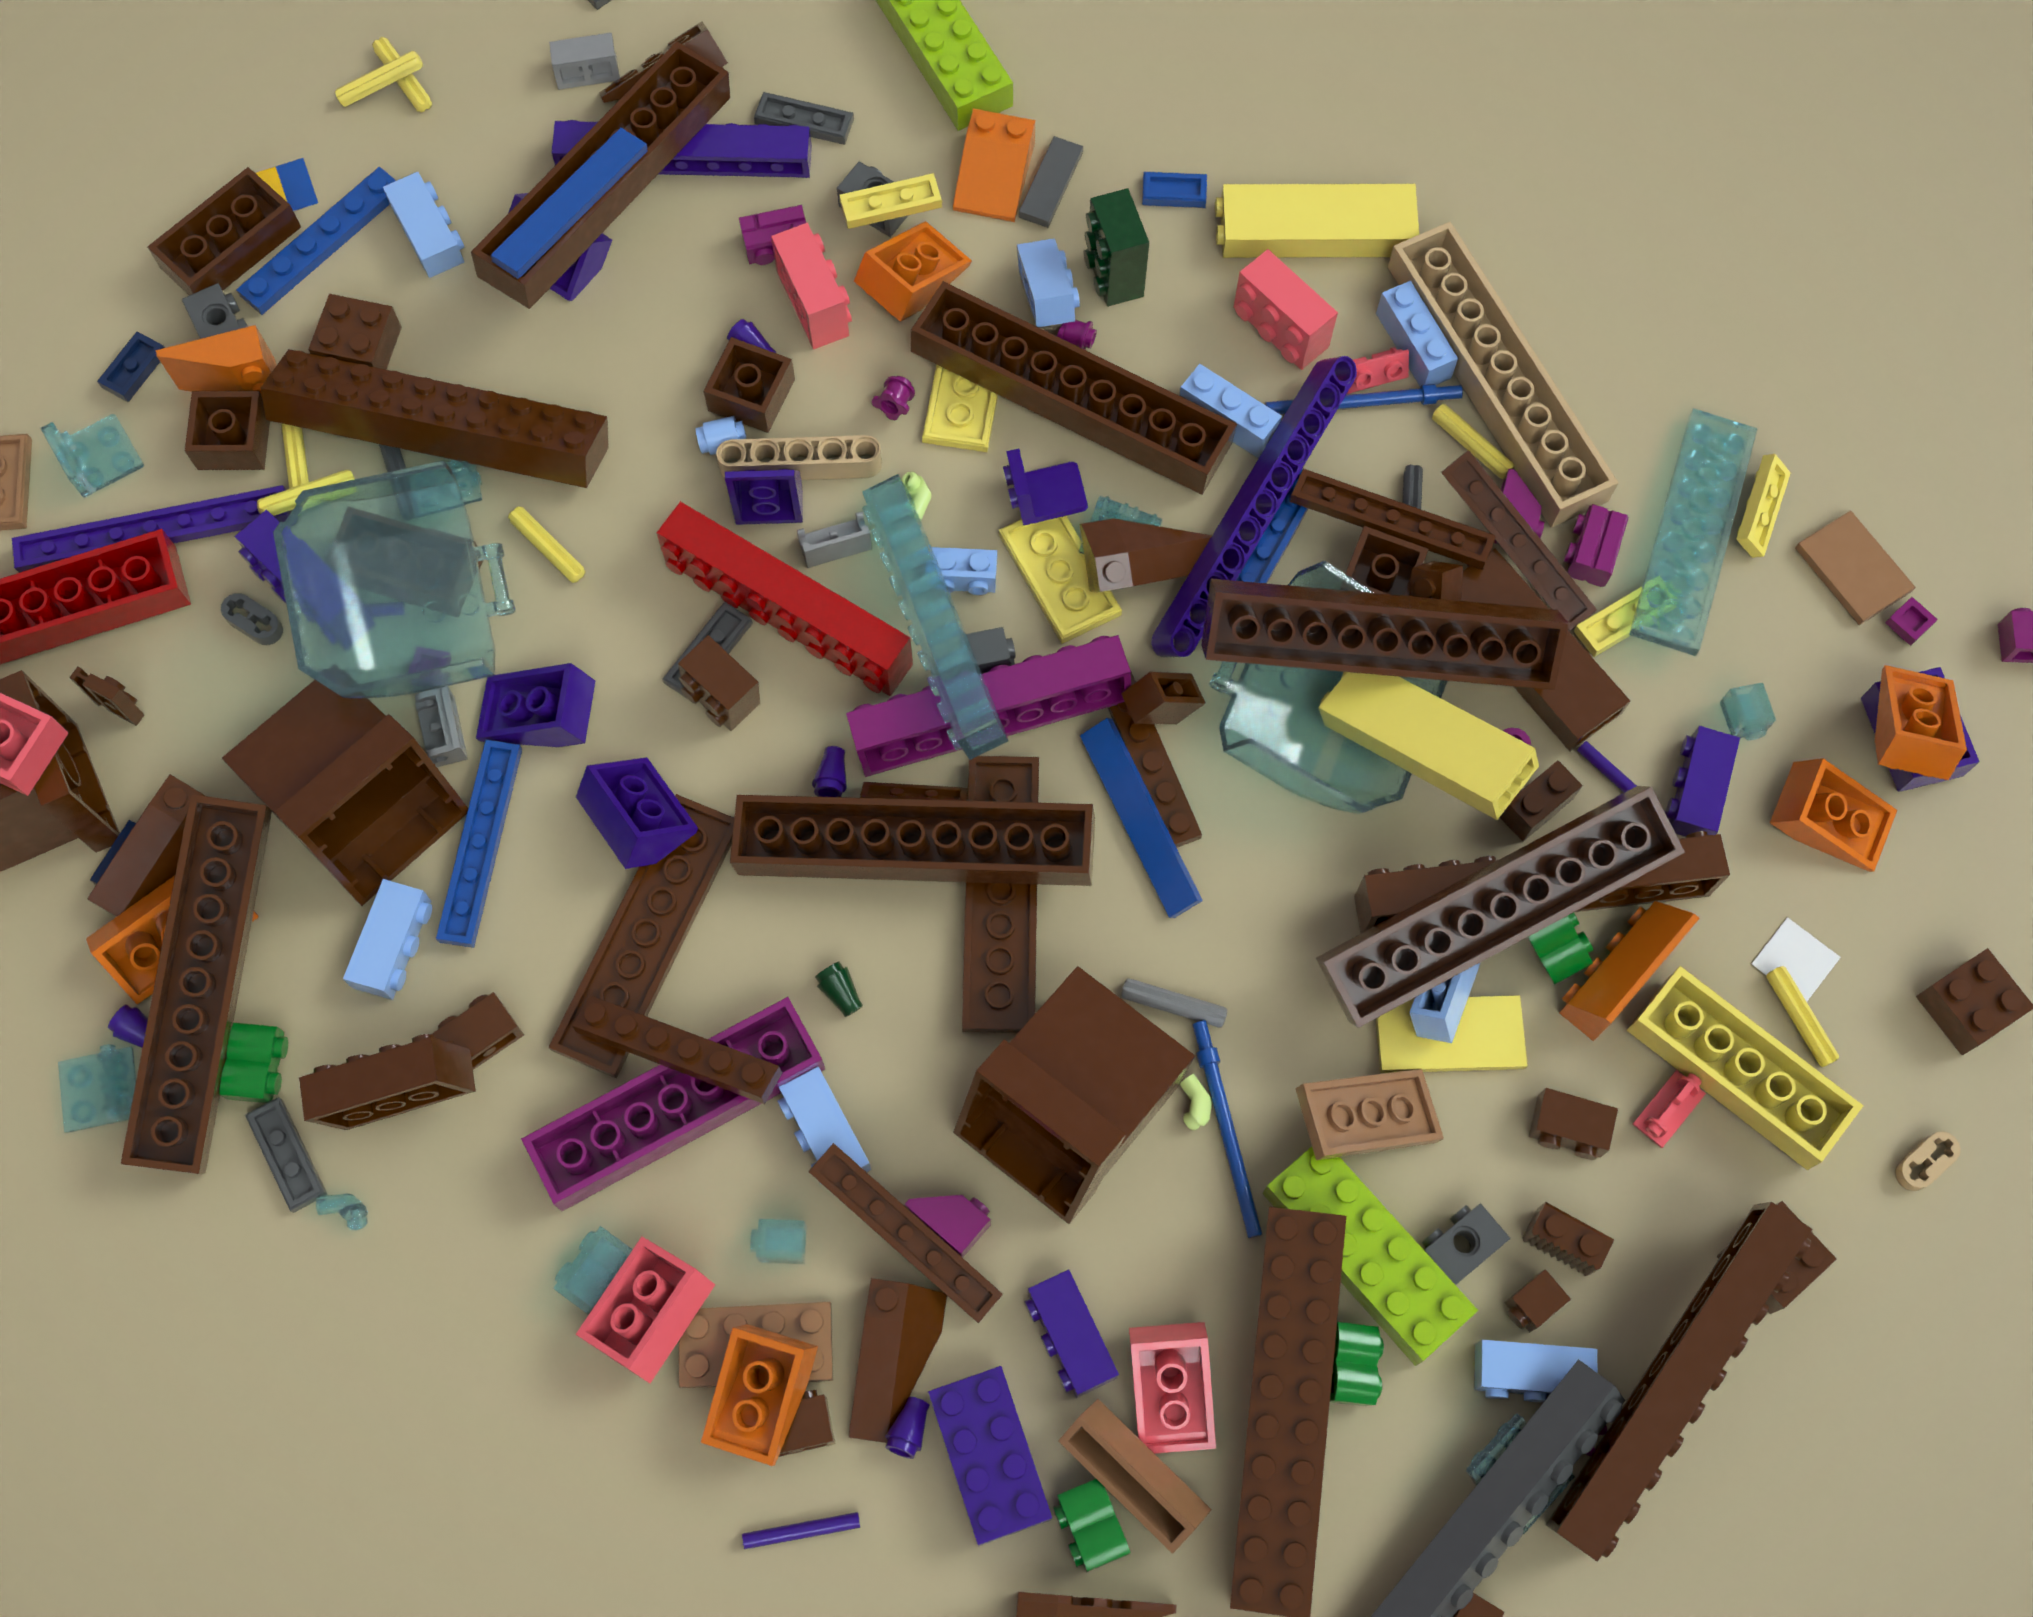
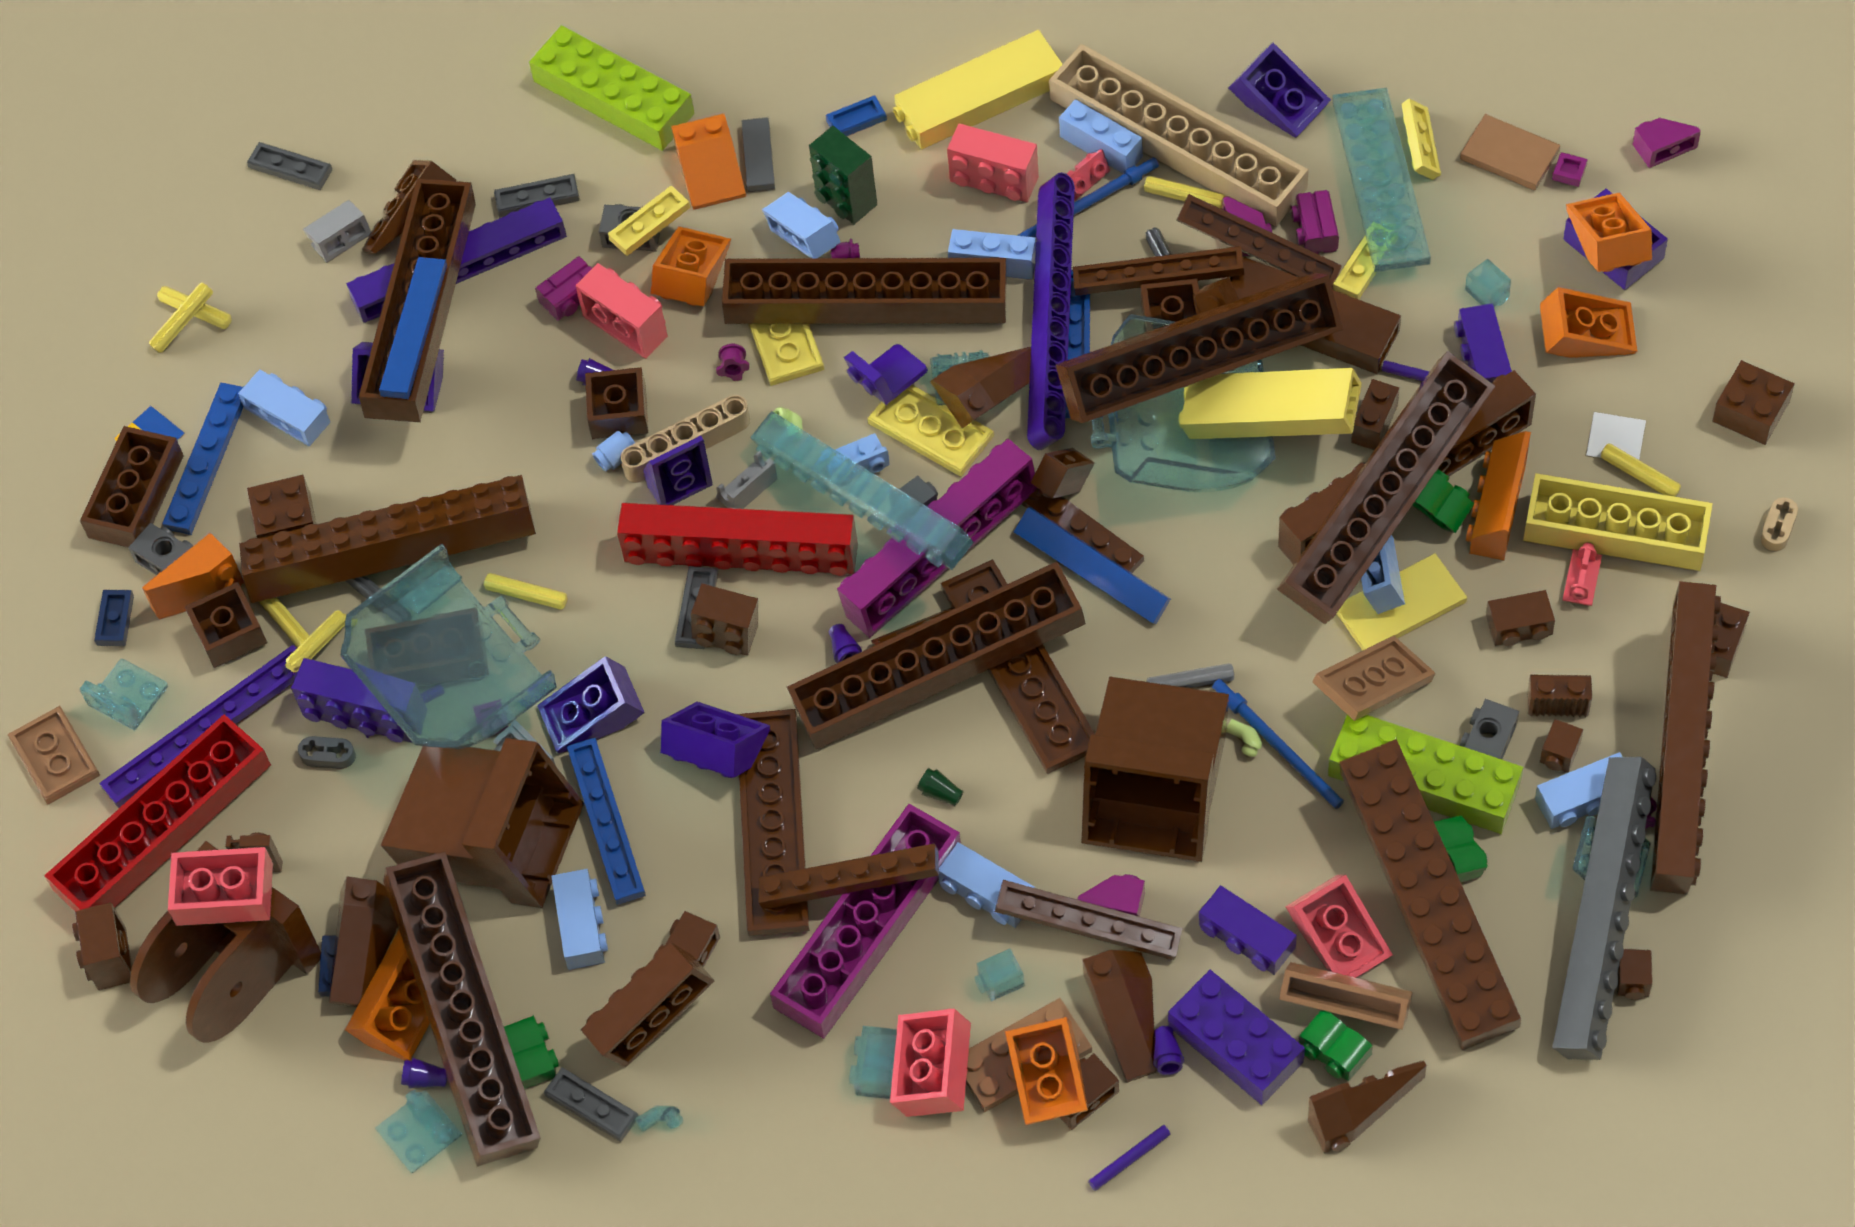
camera: 20 degrees left, 10 degrees down
(1637, 376) = (1279, 91): none -> dark purple slope

